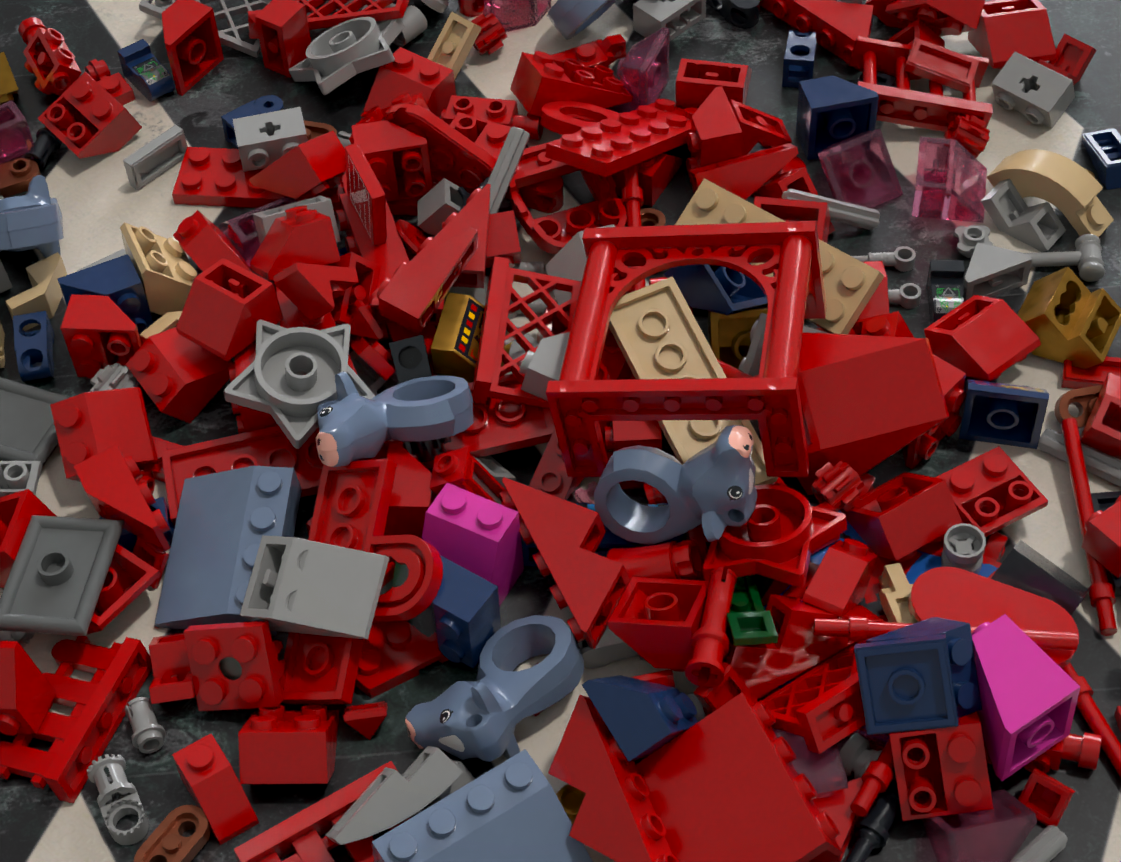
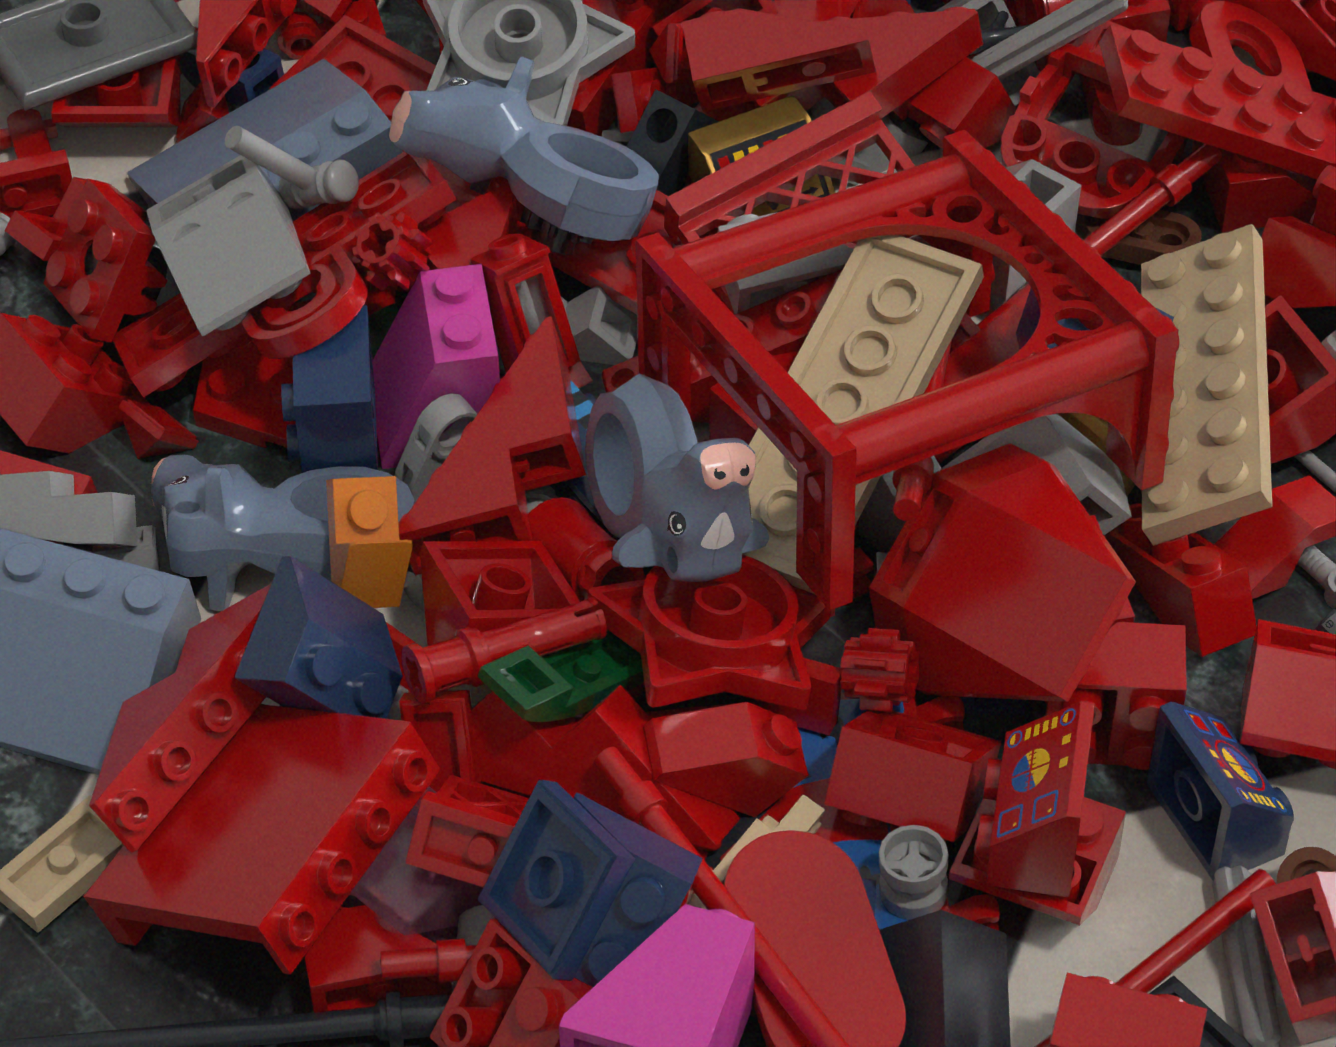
camera: 50 degrees right, 0 degrees up
(303, 524) = (299, 183): none -> light grey piece
(403, 502) = (391, 251): none -> red gear
(519, 585) = (429, 444): none -> light grey piece
(575, 648) = (365, 539): none -> orange slope
(997, 462) = (1037, 803): none -> red slope

